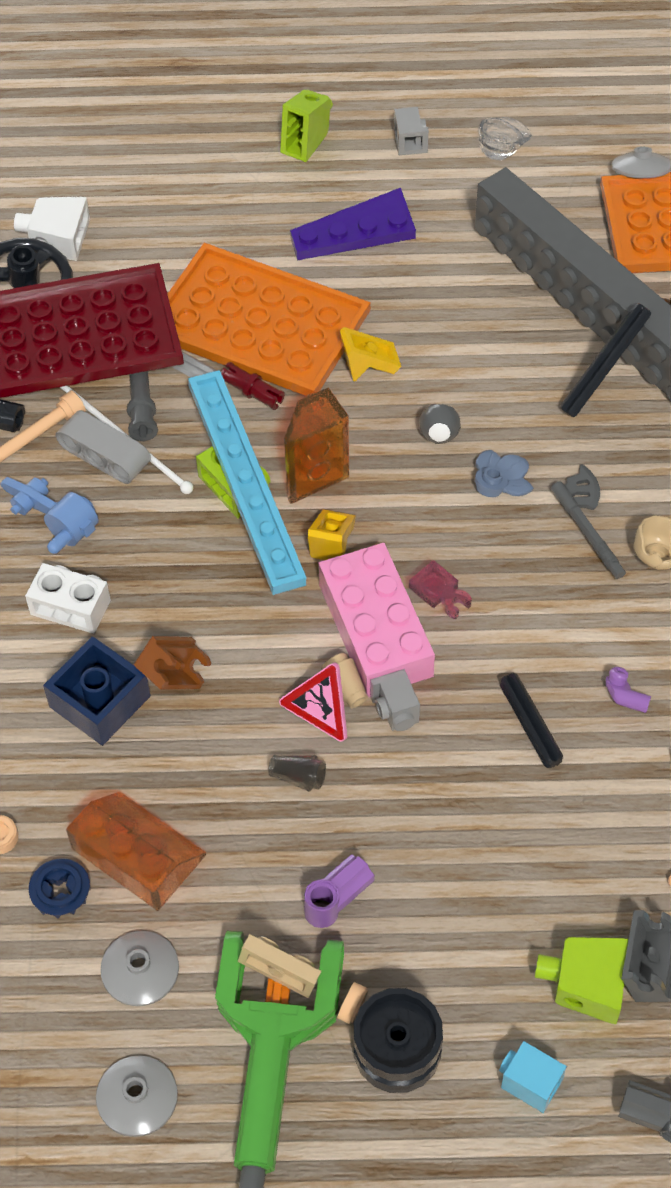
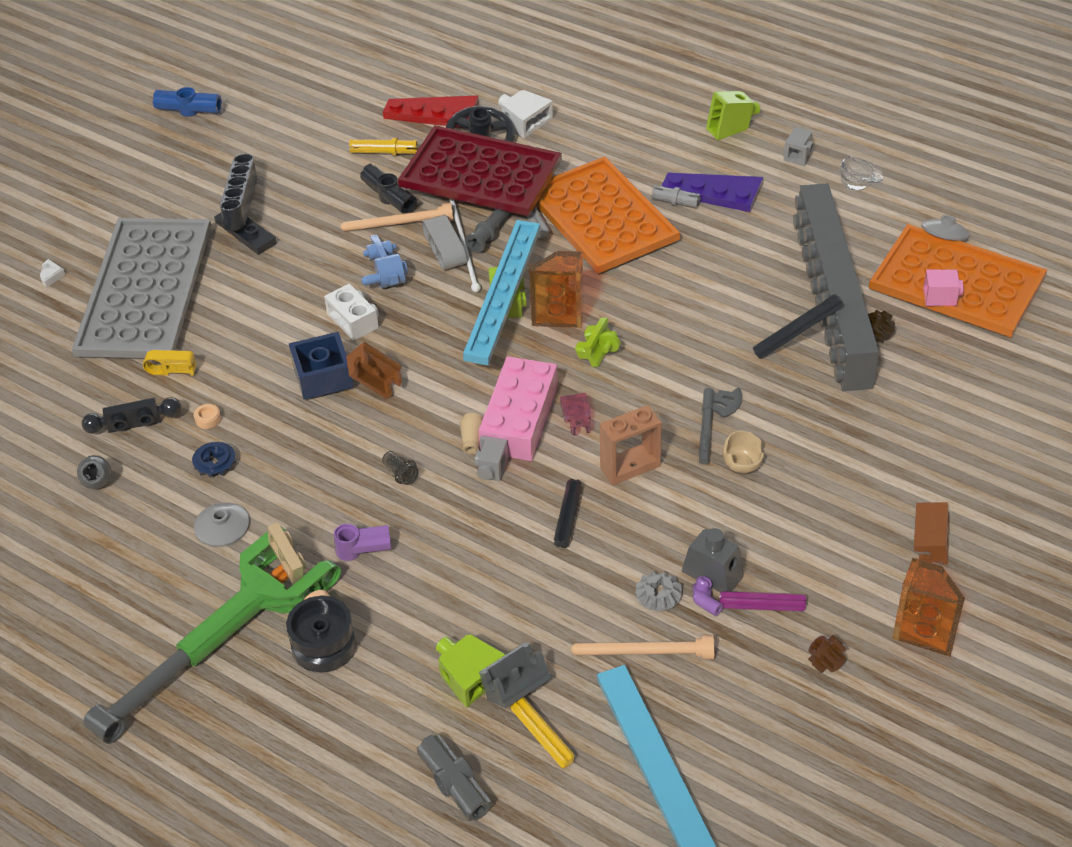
camera: 35 degrees right, 10 degrees down
(134, 847) = (272, 458): clear orange slope -> none
(142, 1113) = (161, 587): light grey dish -> none
(252, 386) = (560, 241): dark red pin -> none
(320, 702) = (443, 436): piece -> none
(323, 257) = (676, 196): none -> light grey pin
(329, 534) = (534, 346): yellow slope -> none
(368, 351) = (648, 256): yellow slope -> none
(396, 485) = (599, 342): none -> lime hips
(439, 423) = (661, 319): dark grey piece -> none
(501, 475) = (677, 368): sand blue plate -> none
(532, 1076) = (384, 701): medium azure brick -> none
(548, 597) = (645, 456): none -> nougat window
(622, 693) = (641, 526): medium lavender arm -> none

